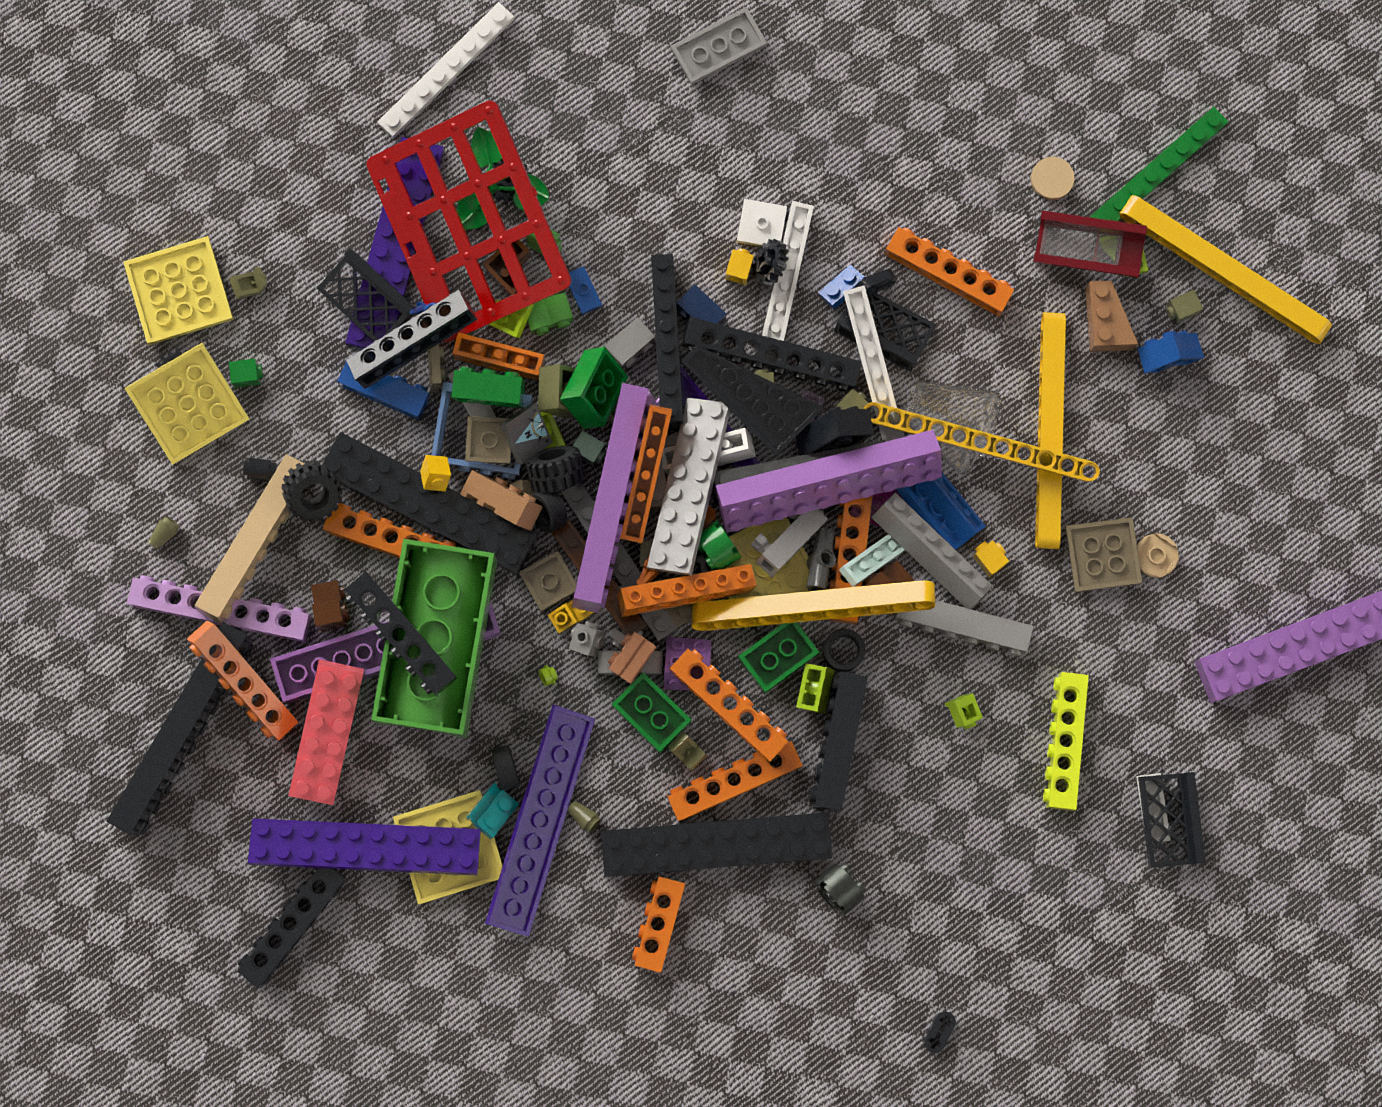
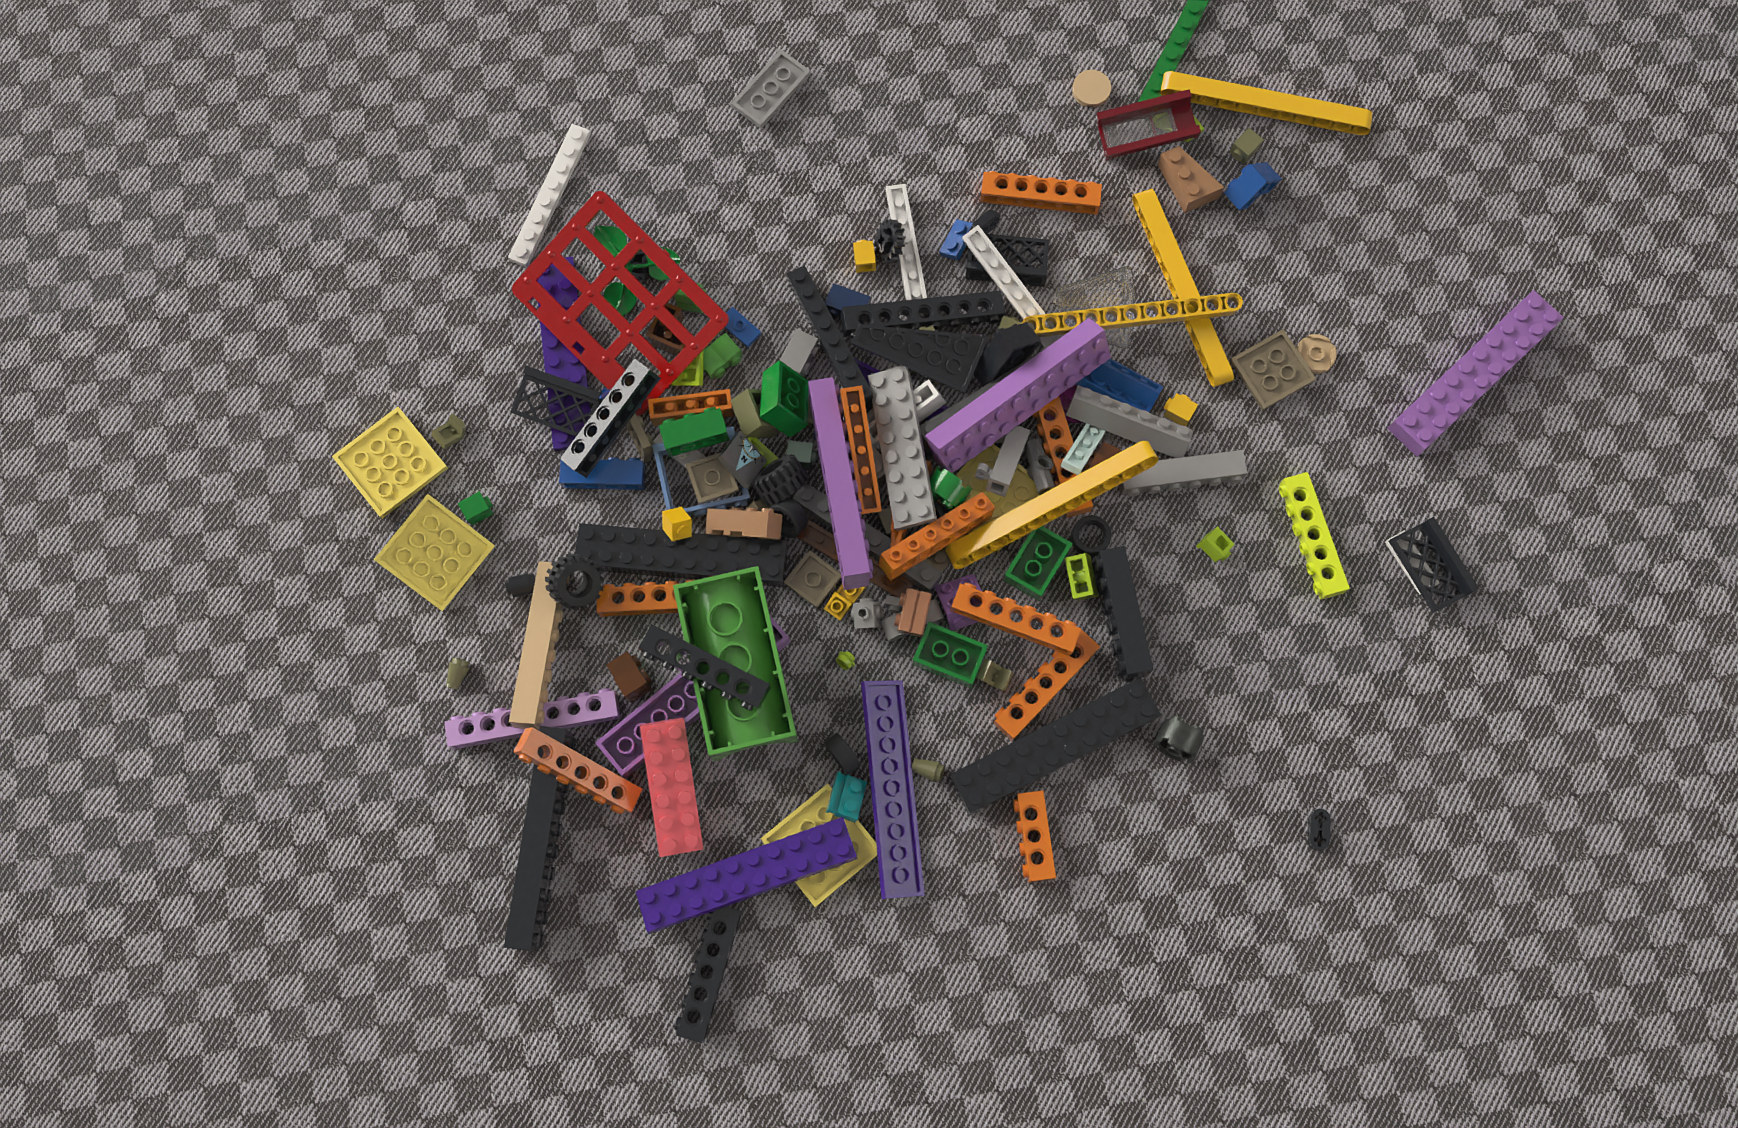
camera: 15 degrees left, 5 degrees down
(760, 222) = (866, 214): white plate -> none

